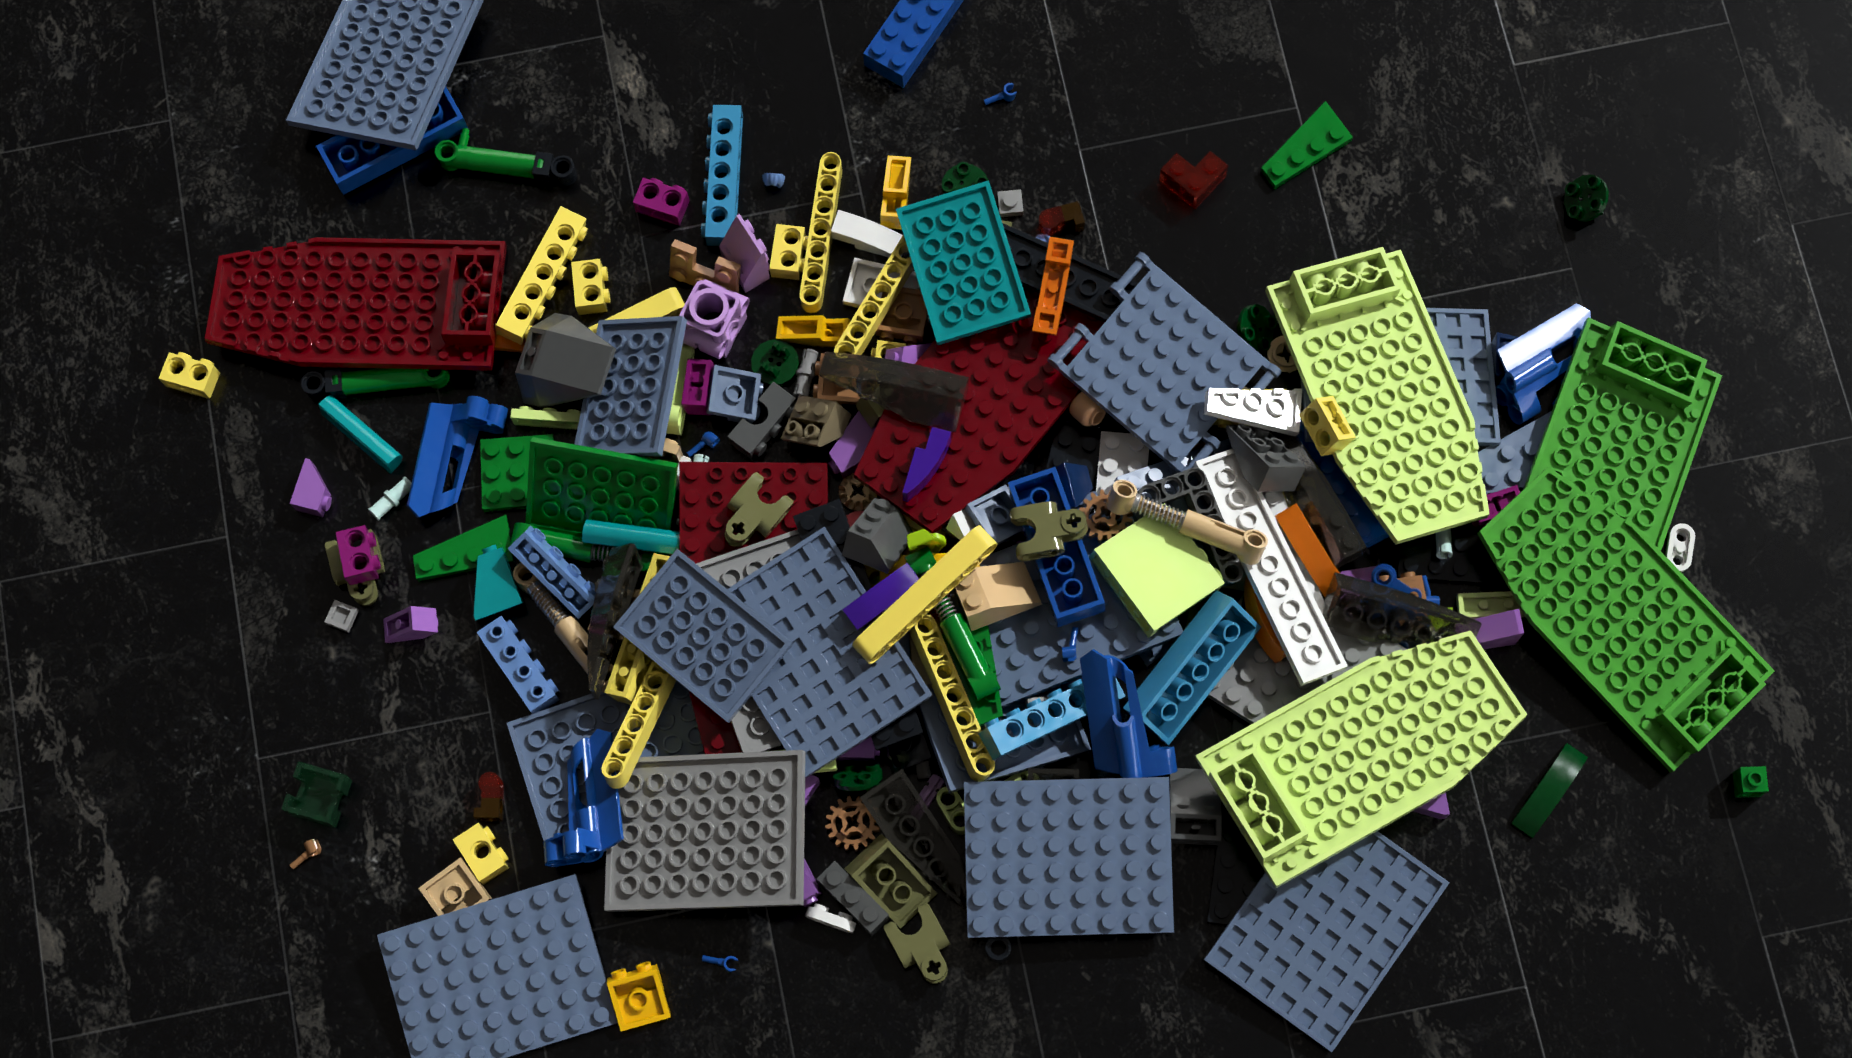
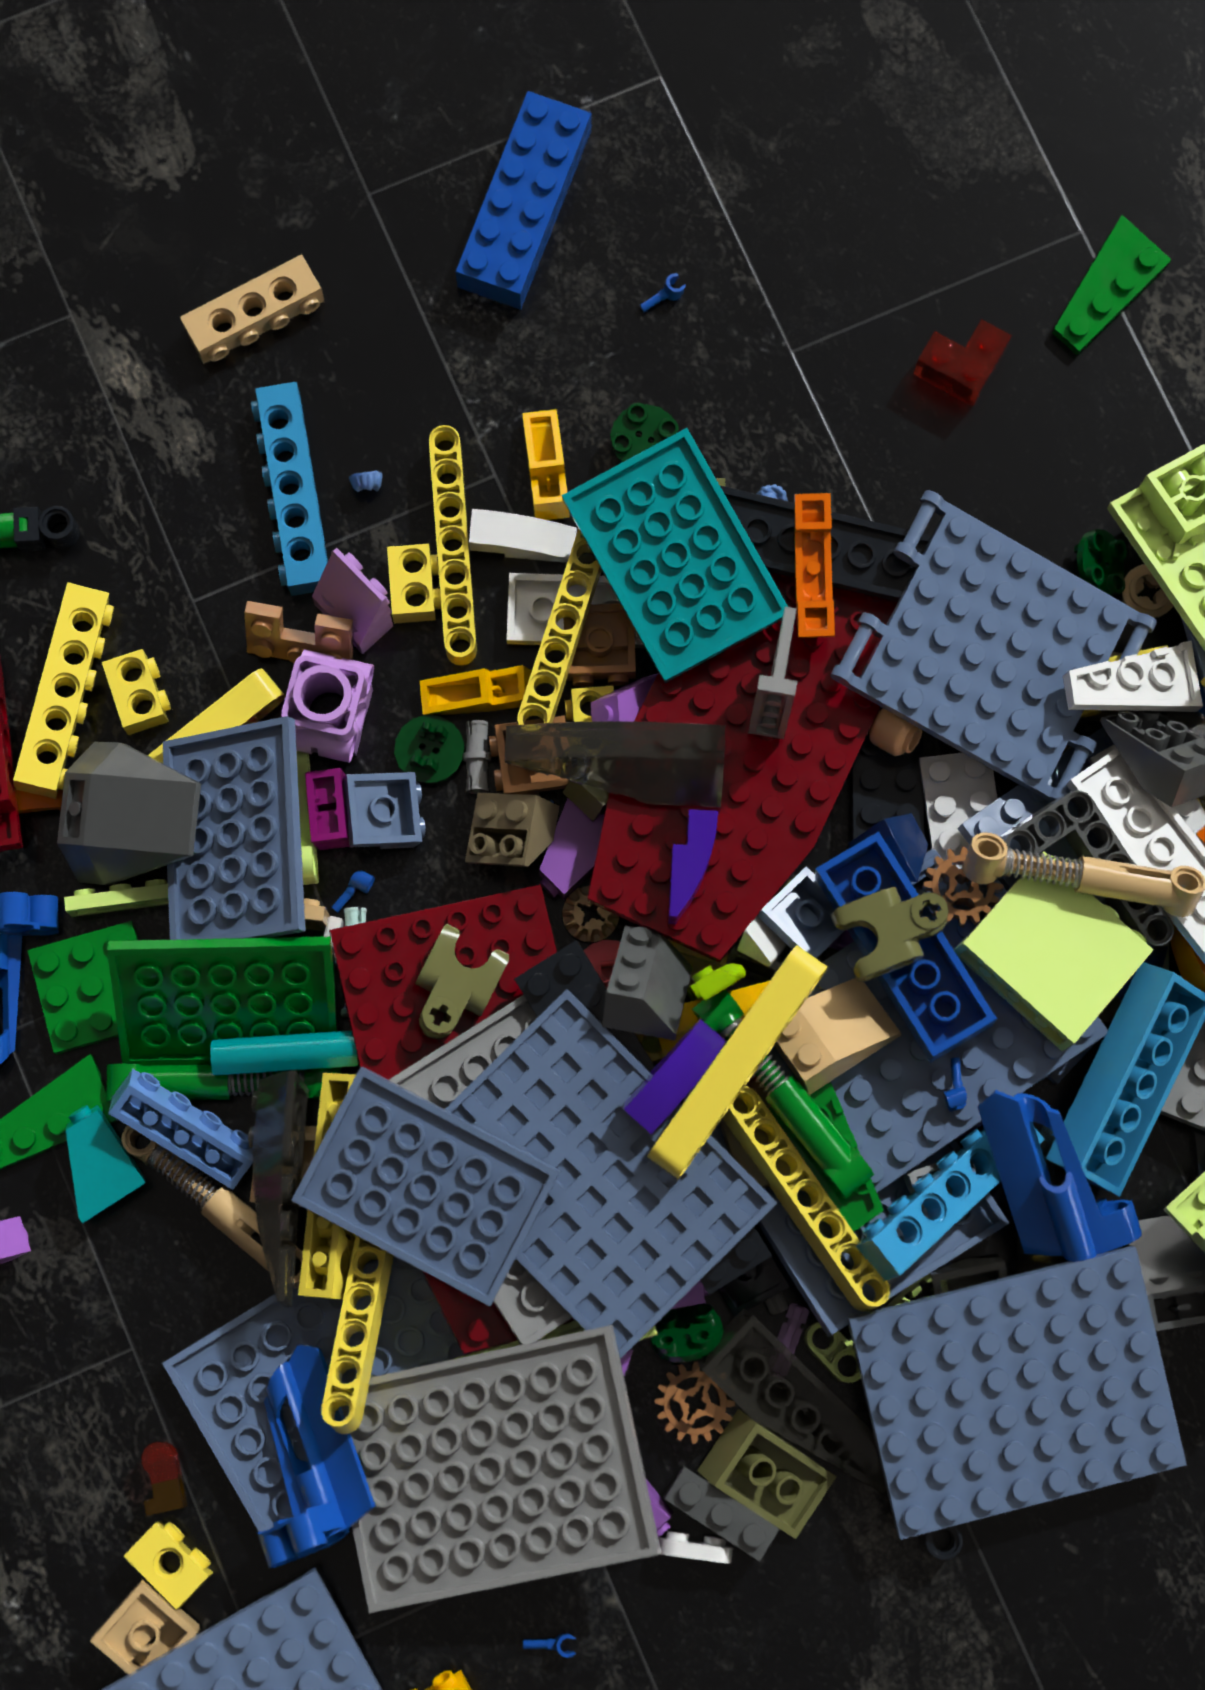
camera: 20 degrees left, 5 degrees up
(518, 666) = (159, 1274): medium blue brick -> none
(658, 206) = (209, 554): magenta brick -> none
(732, 44) = (261, 293): none -> tan brick
(752, 438) = (422, 868): dark grey arch -> none
(921, 947) = (835, 1560): olive piece -> none
(1003, 355) = (774, 693): none -> light grey fence
(1010, 203) = (714, 447): light grey plate -> none
(1061, 218) = (791, 456): leg -> none

